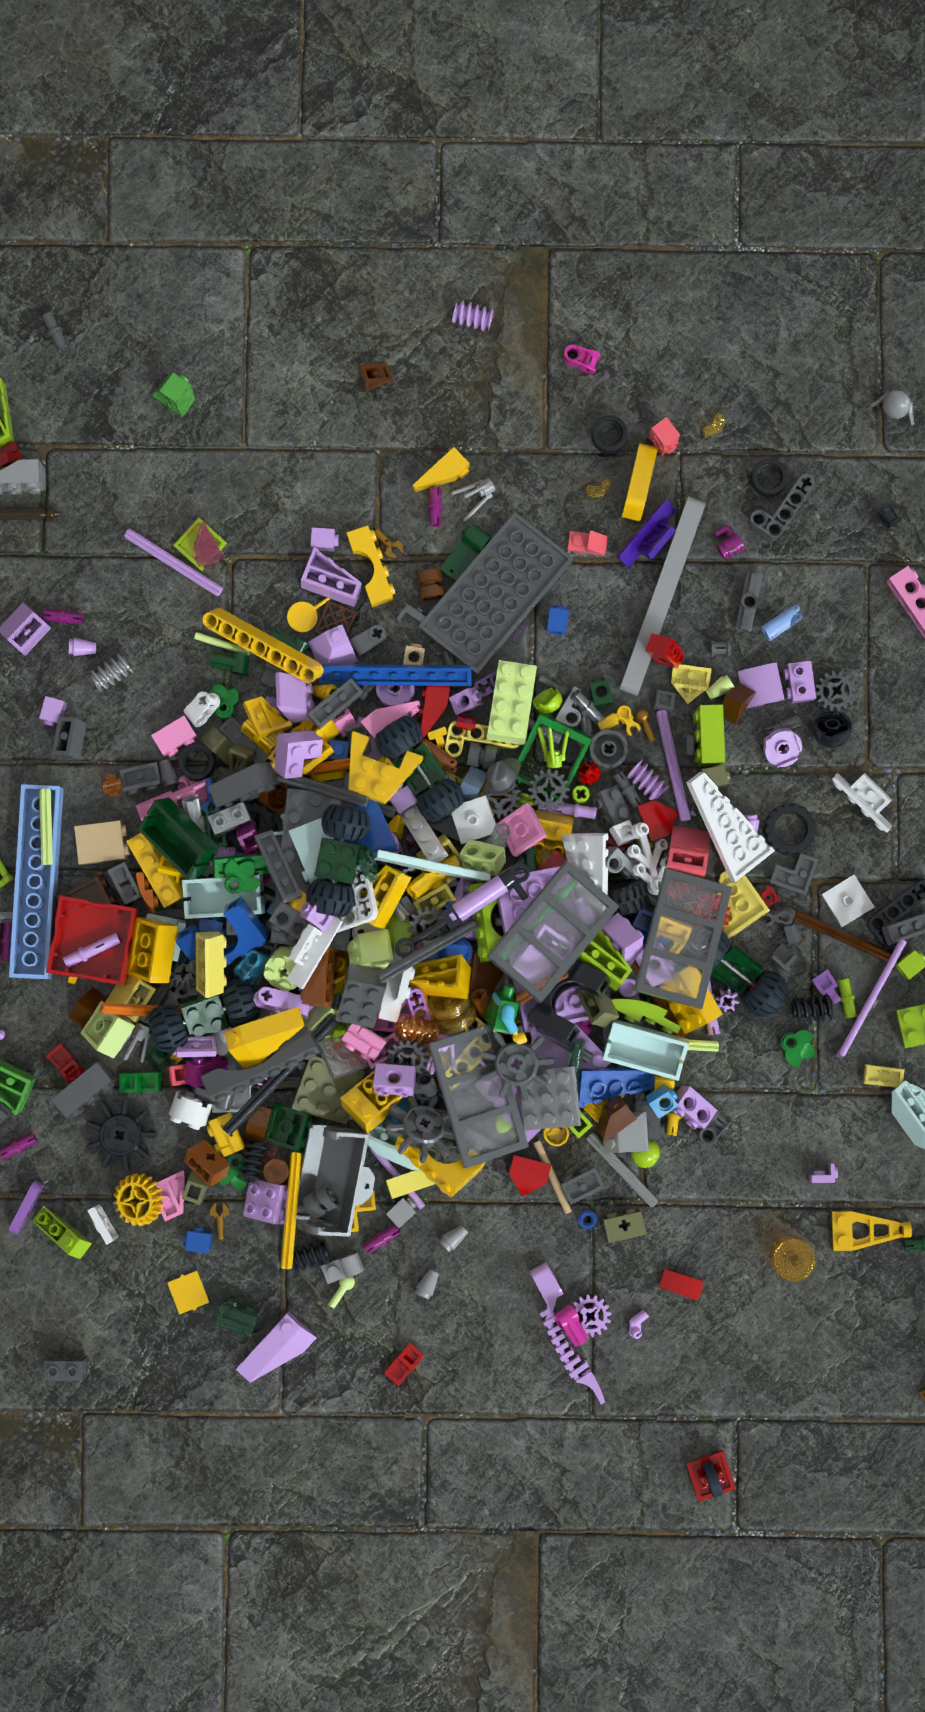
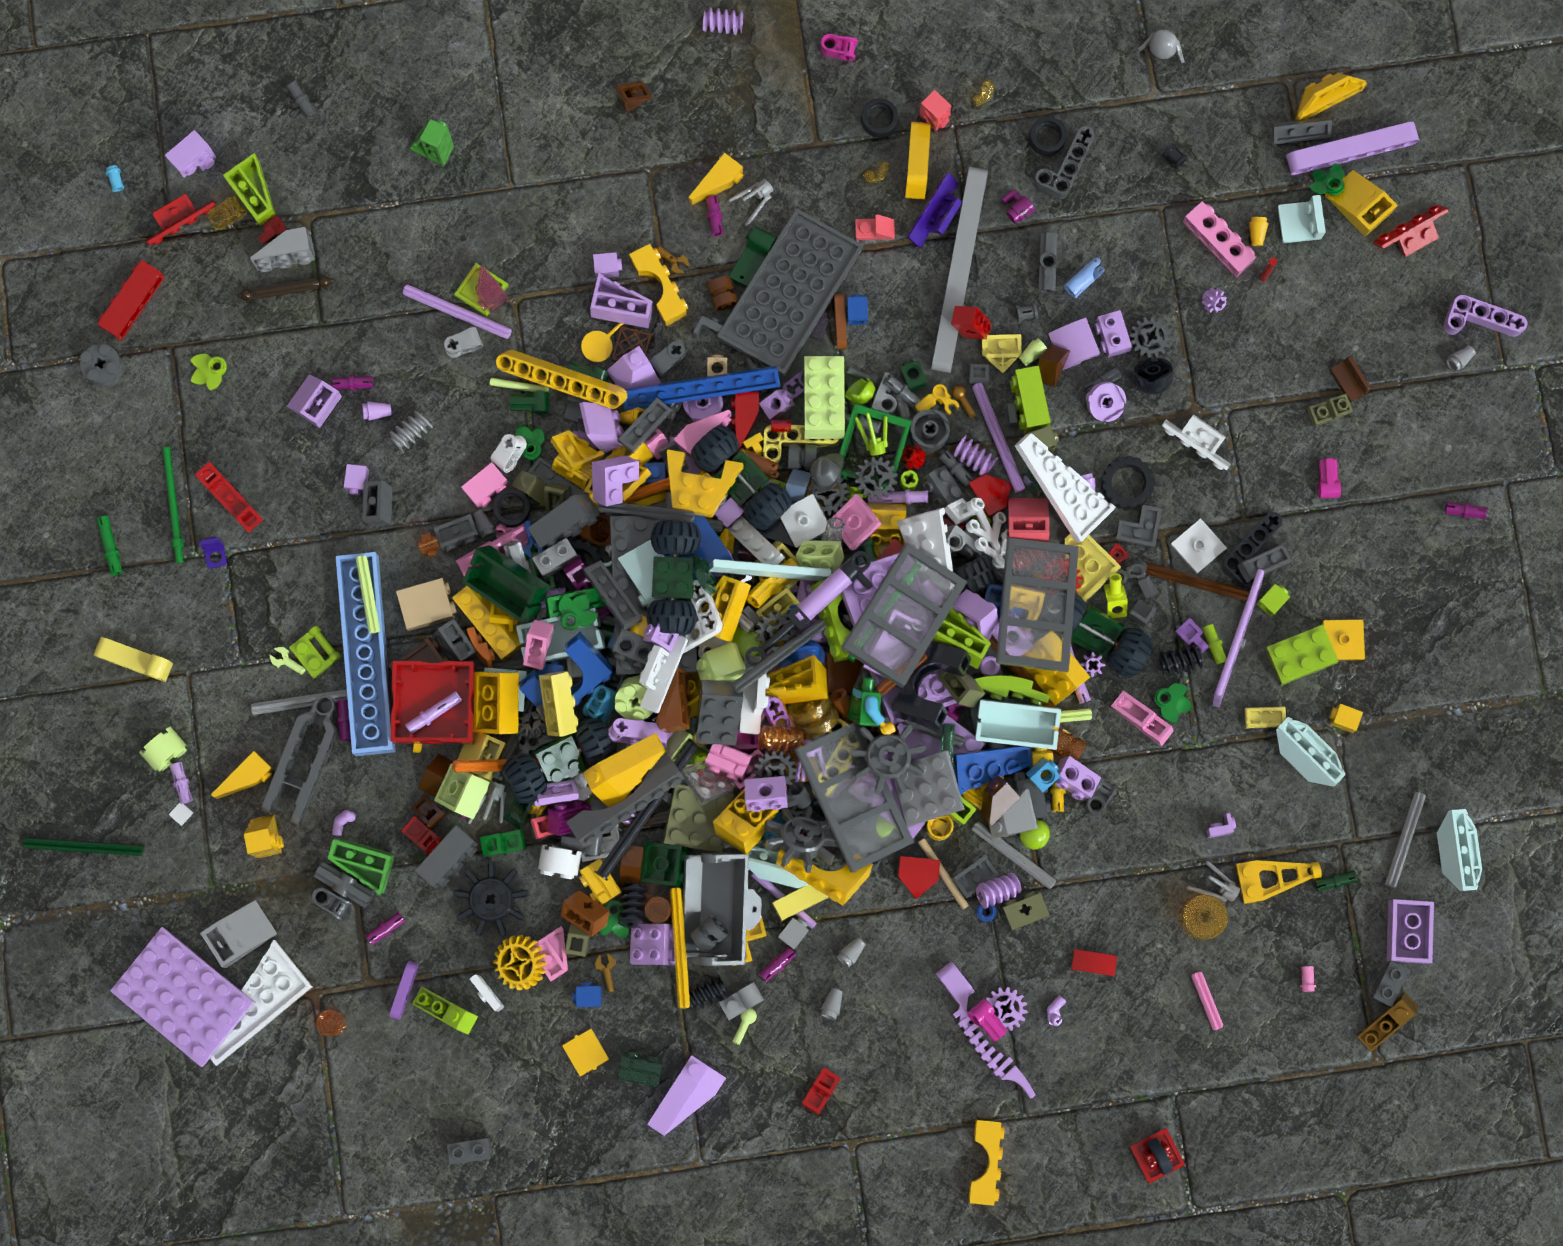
camera: 10 degrees left, 5 degrees down
(74, 1042) = (428, 812): none -> reddish brown slope
(176, 594) = (465, 342): none -> light grey piece
(199, 902) = (537, 644): none -> bright pink arch
(539, 629) = (840, 321): none -> dark orange beam
(542, 1480) = (984, 1189): none -> yellow arch
(601, 1201) = (998, 890): none -> lavender piece
(692, 1075) = (1069, 746): none -> clear orange wheel
(760, 937) = (1115, 596): none -> neon yellow bracket
(766, 1058) = (1142, 718): none -> bright pink slope
(782, 1337) = (1207, 1000): none -> bright pink axle
(820, 1235) = (1228, 888): none -> light grey plant
(881, 1332) = (1307, 979): none -> bright pink pin
(903, 664) = (1214, 300): none -> lavender gear

